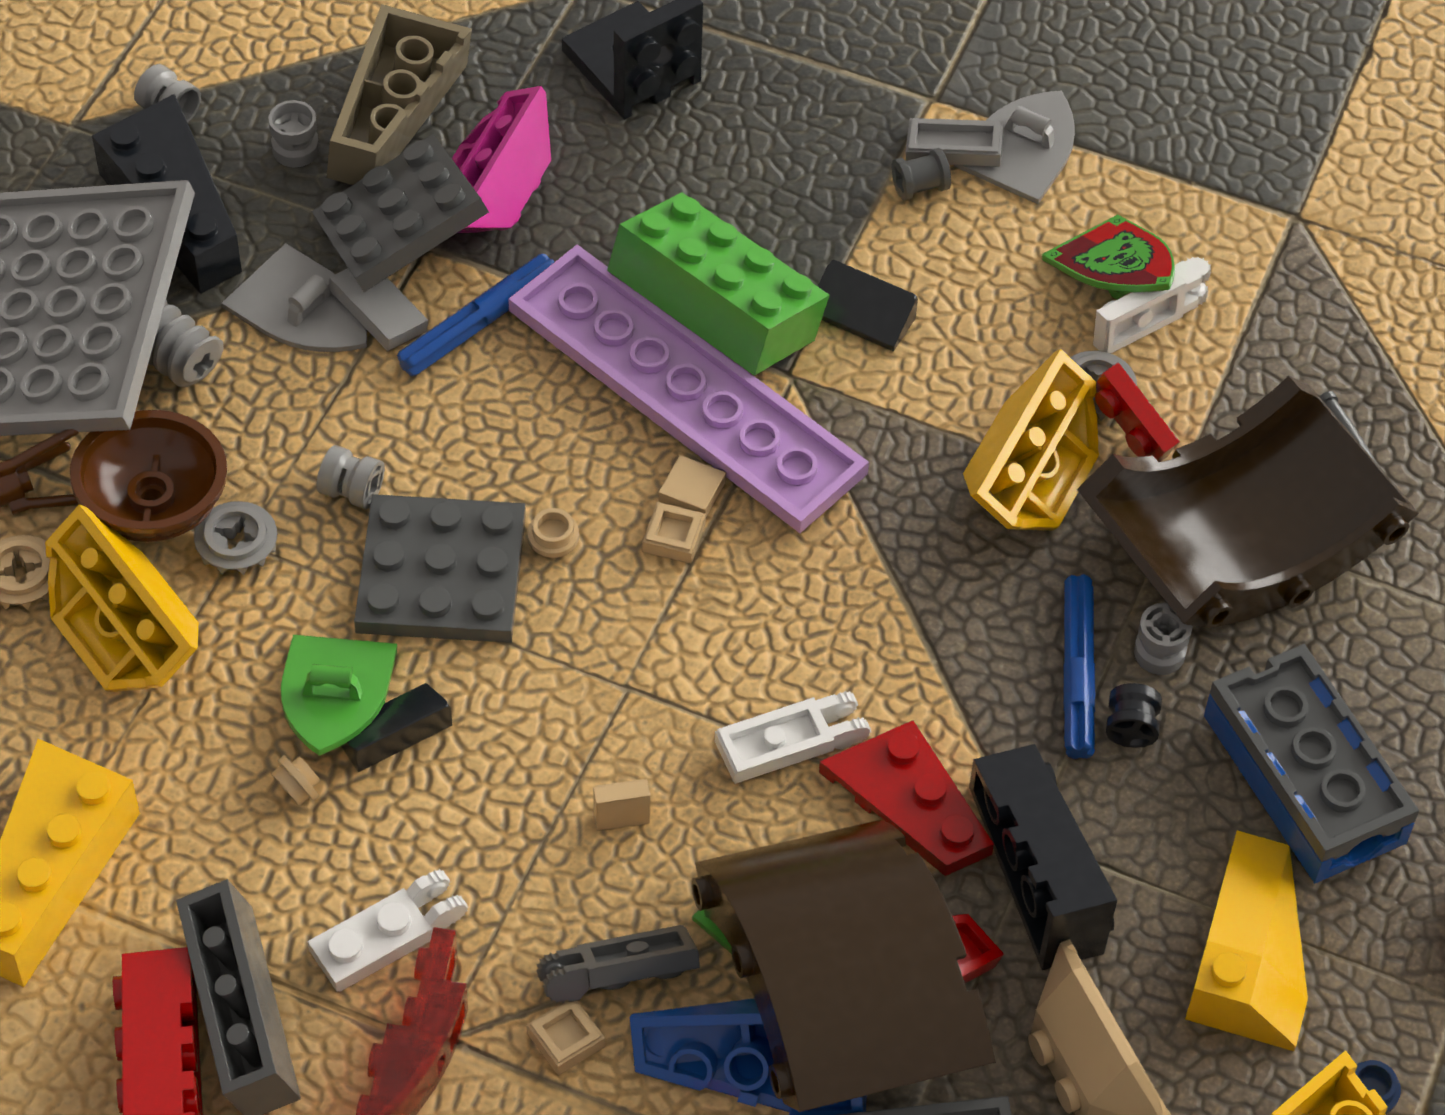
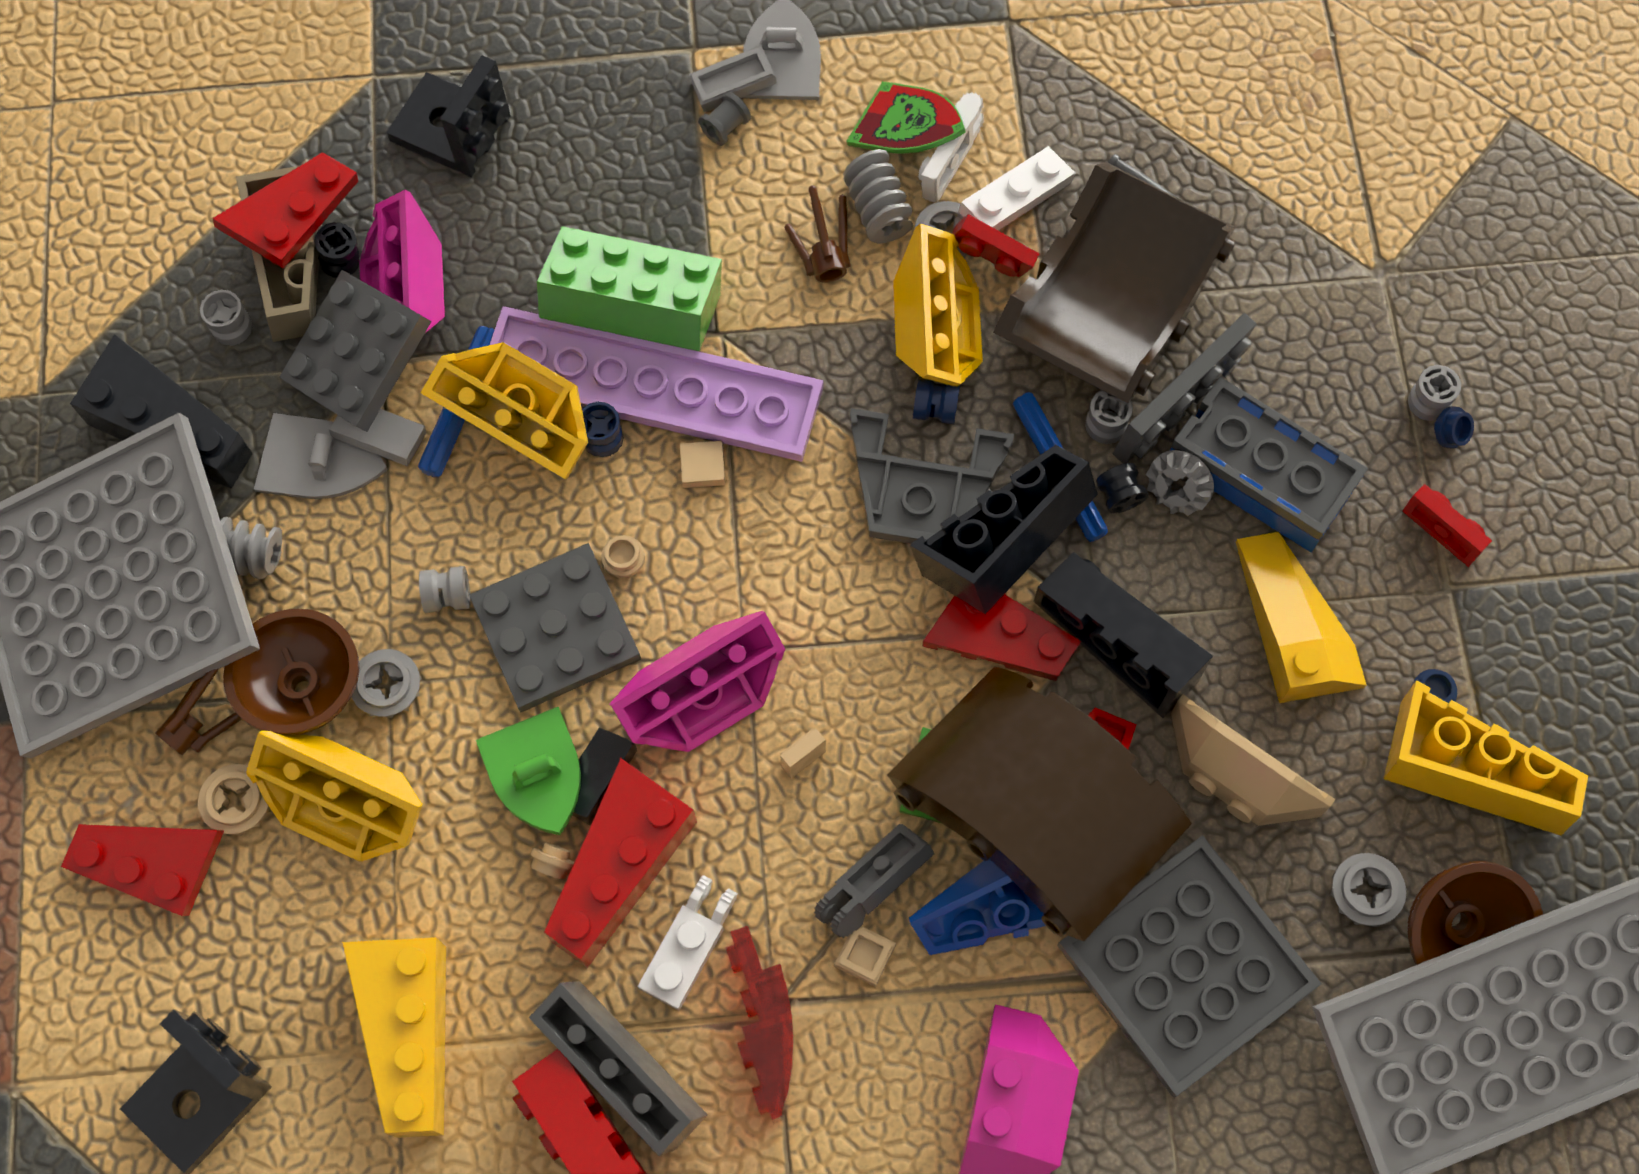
camera: 25 degrees left, 15 degrees up
(161, 82) = (96, 330): light grey wheel -> none
(360, 811) = (619, 859): none -> red wedge
(414, 56) = (288, 210): none -> red wing
(445, 116) = (344, 251): none -> black wheel
(527, 328) = (513, 402): none -> yellow wedge
(554, 689) = (702, 685): none -> dark pink wedge
(604, 403) = (604, 420): none -> dark blue wheel
(674, 532) = (710, 508): tan tile -> none
(789, 735) = (887, 633): white hinge -> none
(867, 305) = (746, 248): black slope -> none
(908, 627) = (914, 496): none -> dark grey wing
(947, 353) = (826, 260): none -> reddish brown plant
(975, 685) = (1007, 530): none -> black wedge
(980, 538) = (935, 401): none -> dark blue wheel
(1039, 313) = (878, 197): none -> light grey piece
(1200, 377) = (1019, 190): none -> white plate
(1207, 652) = (1187, 388): none -> dark grey plate
(1215, 747) = (1171, 467): none -> light grey gear

